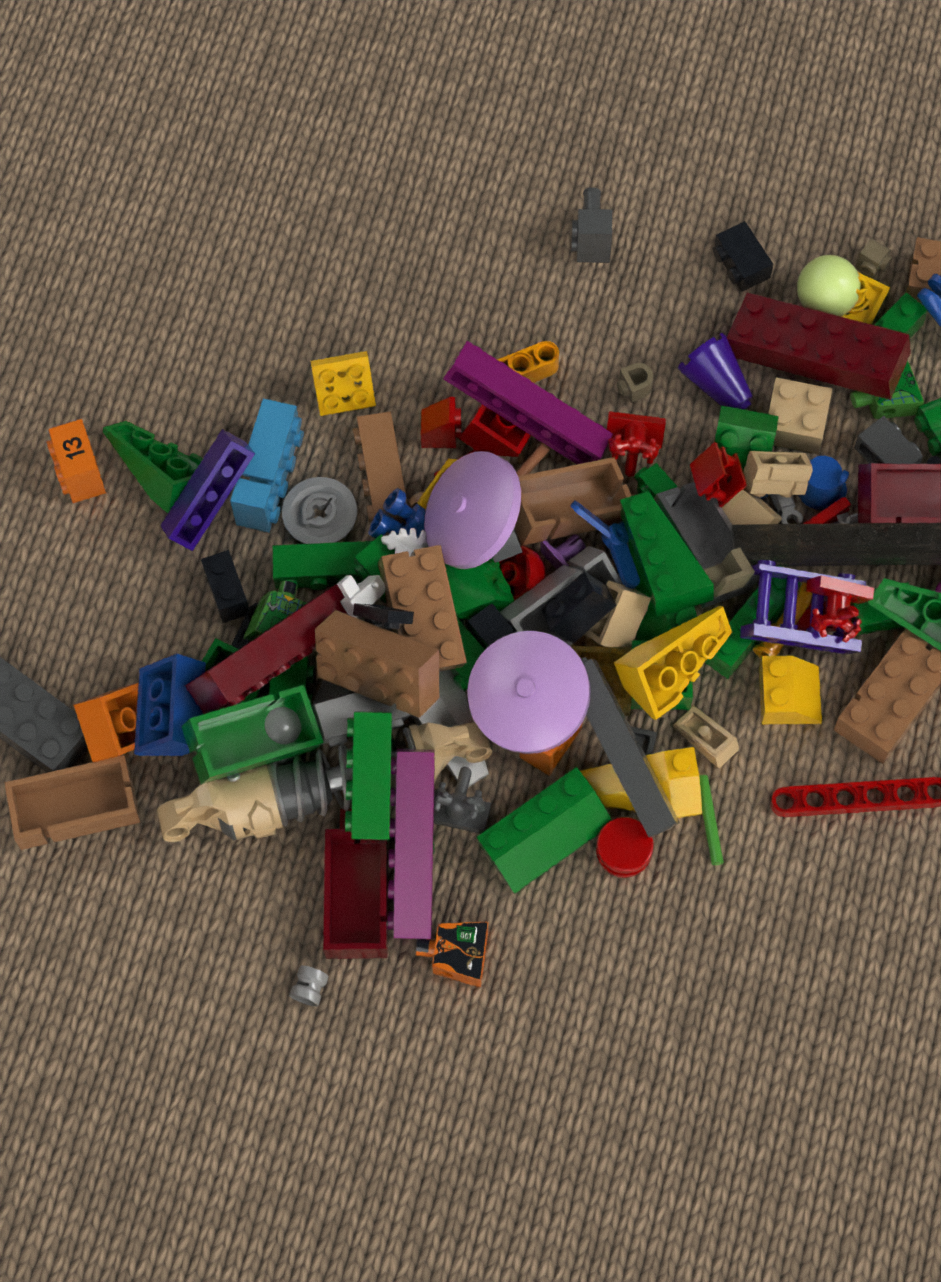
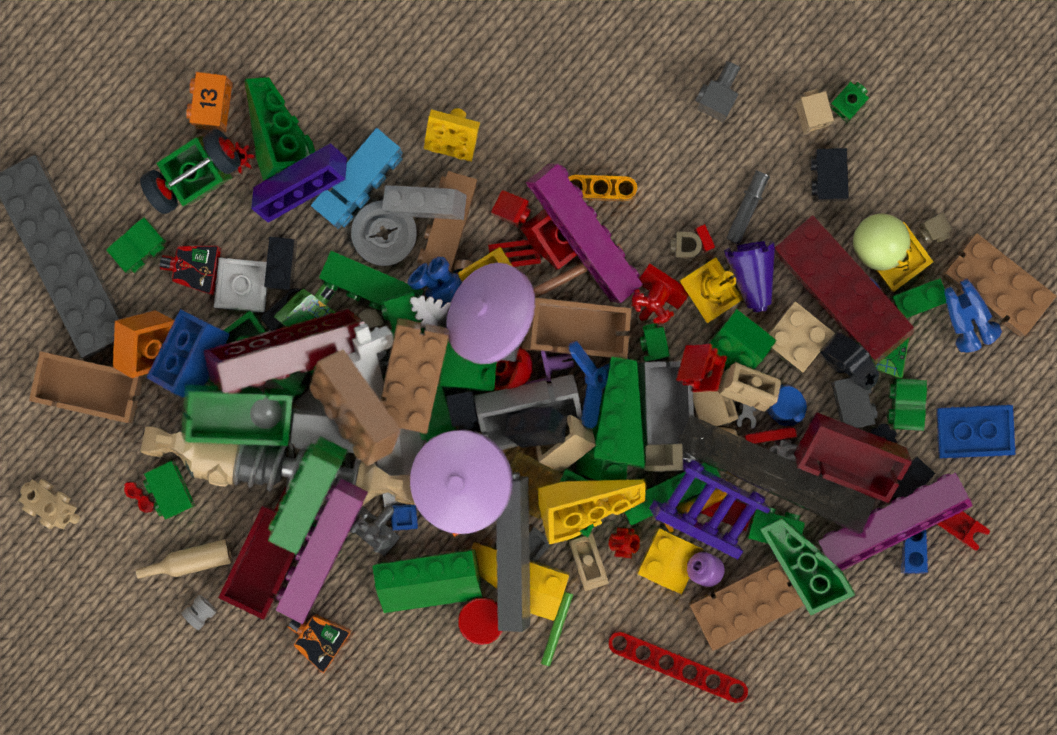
camera: 30 degrees right, 20 degrees up
(61, 639) = (136, 246): none -> green brick
(84, 946) = (50, 506): none -> tan brick
(88, 533) = (191, 172): none -> brick
(134, 632) = (194, 267): none -> black torso
(139, 508) = (244, 162): none -> red gear
(177, 894) = (135, 492): none -> red piece
(192, 627) = (240, 285): none -> white tile
(214, 871) = (169, 490): none -> green brick
(272, 934) = (190, 560): none -> tan piece
(347, 451) = (424, 202): none -> light grey brick
(383, 615) = (376, 373): black plate -> none
(486, 779) = (404, 517): none -> blue tile
(657, 367) = (707, 243): none -> red tile
(677, 315) = (748, 206): none -> dark grey axle
(686, 406) = (715, 287): none -> yellow plate
(695, 203) = (814, 111): none -> tan brick
(722, 186) = (845, 109): none -> green brick
(733, 694) = (624, 542): none -> red gear
(833, 678) = (705, 569): none -> medium lavender head
(838, 608) = (735, 522): red piece -> none
(859, 397) = (850, 358): none -> black piece

